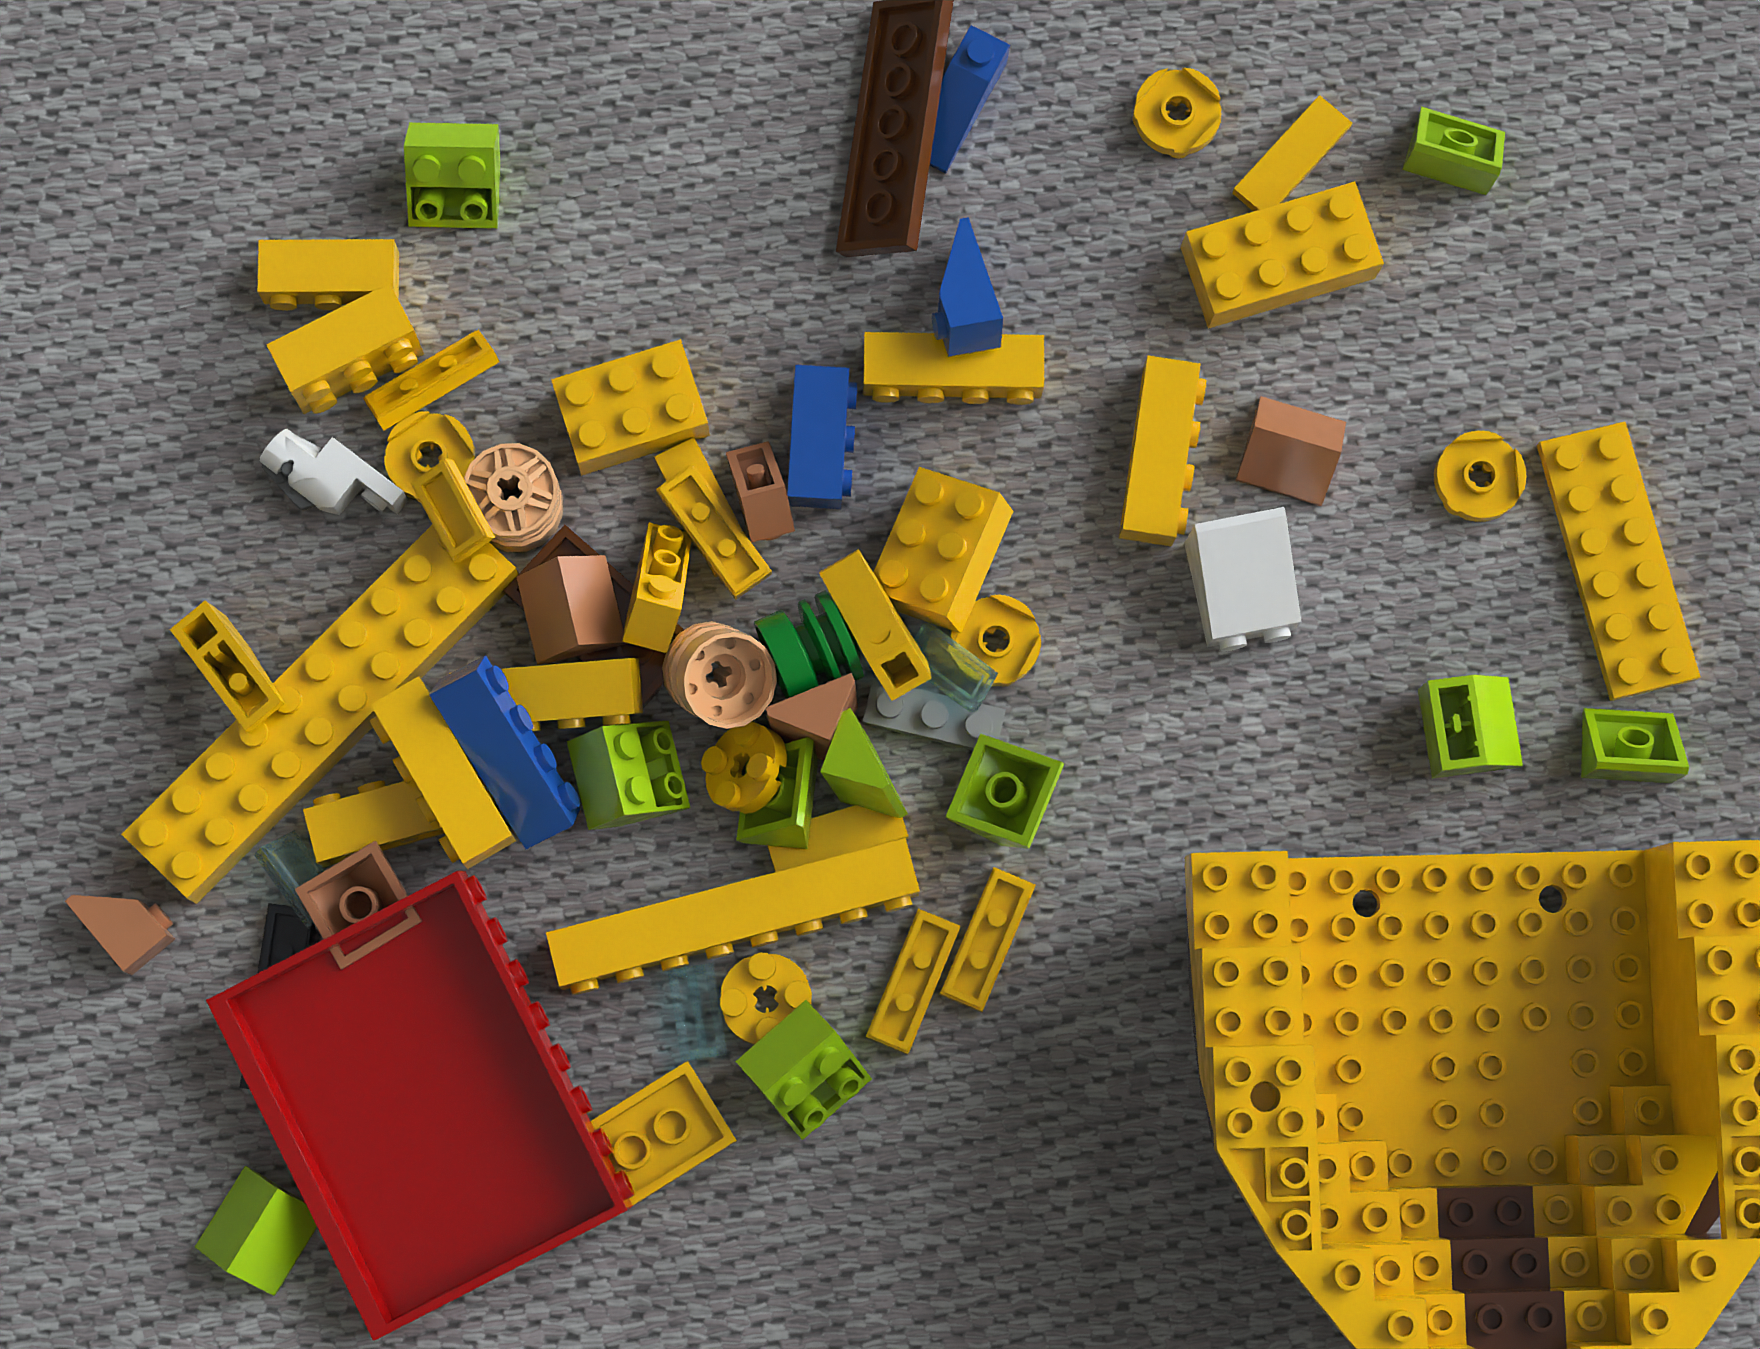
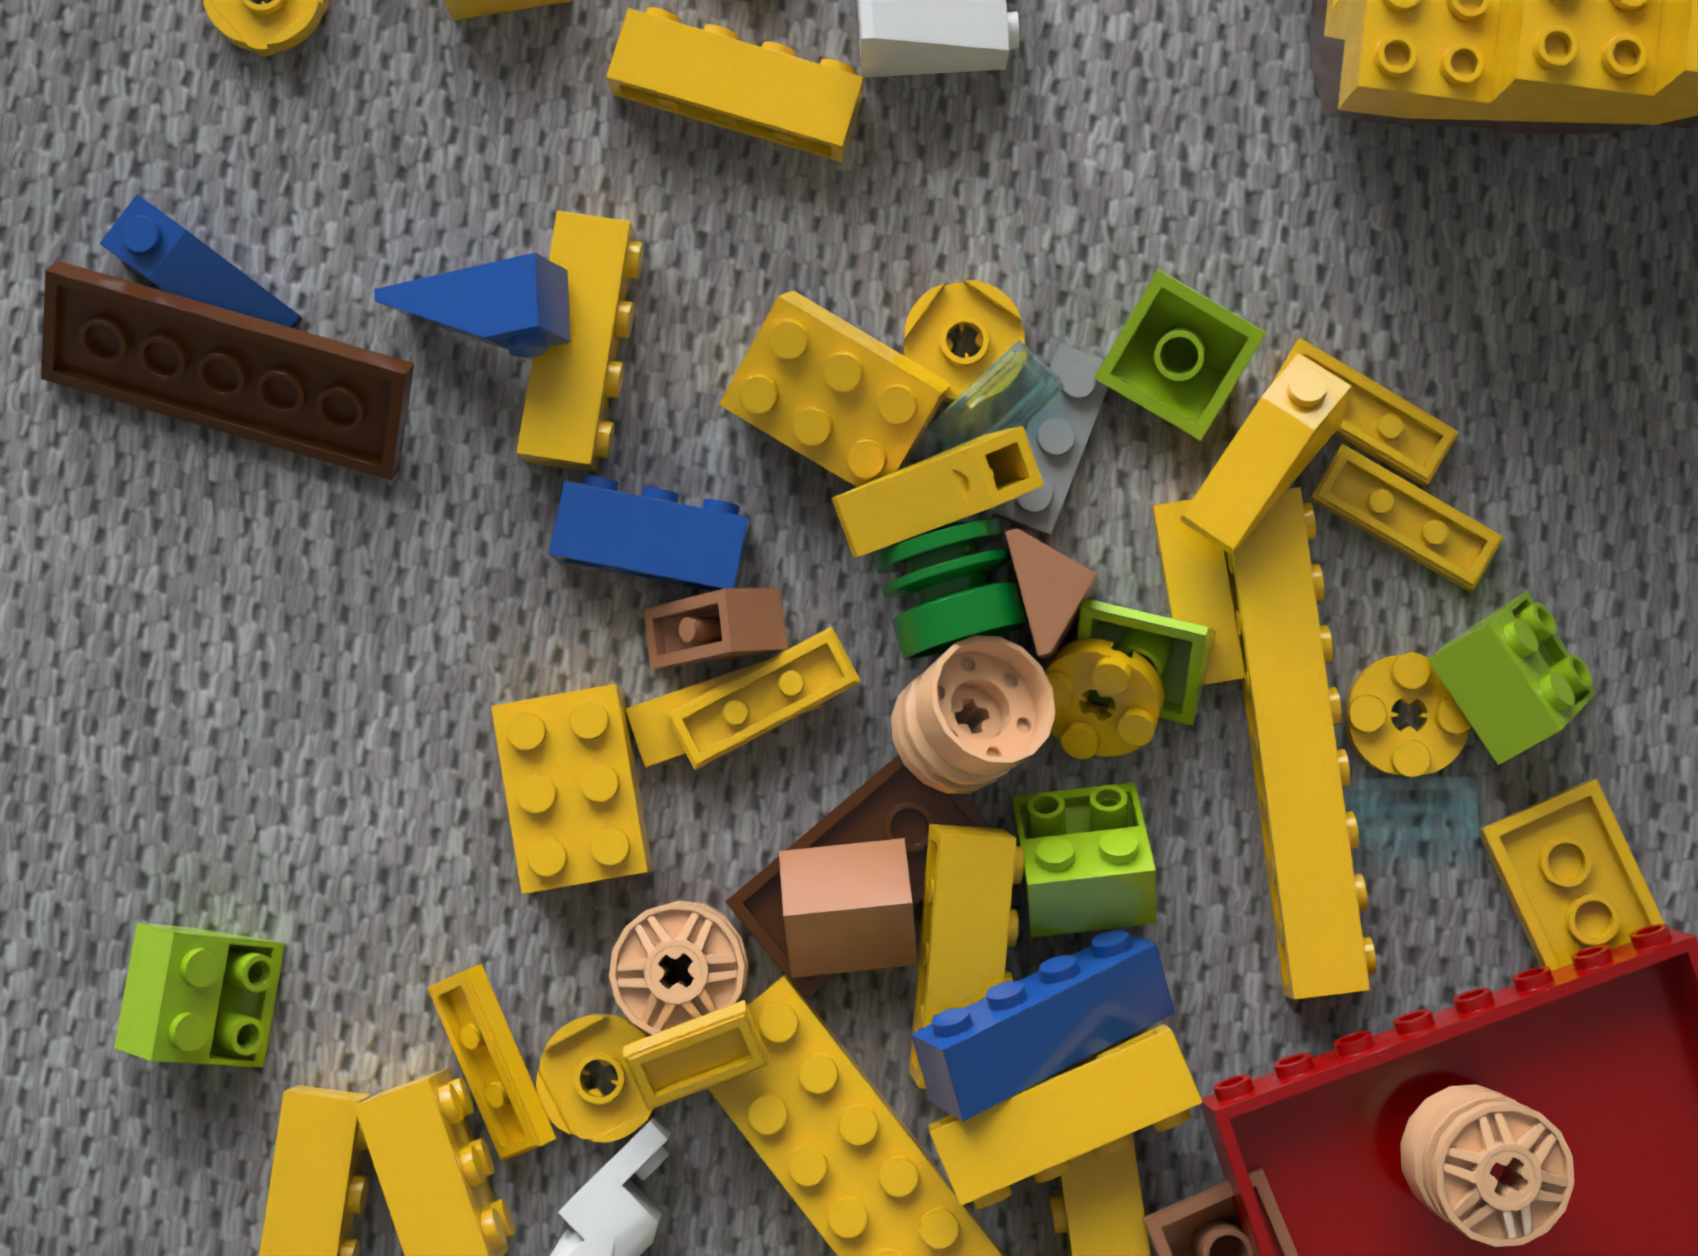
camera: 70 degrees left, 5 degrees up
(467, 1051) = (1456, 1143): none -> light nougat wheel
(658, 588) = (838, 783): yellow slope -> none
(857, 772) = (1127, 544): lime slope -> none
(939, 861) = (1268, 453): none -> yellow slope

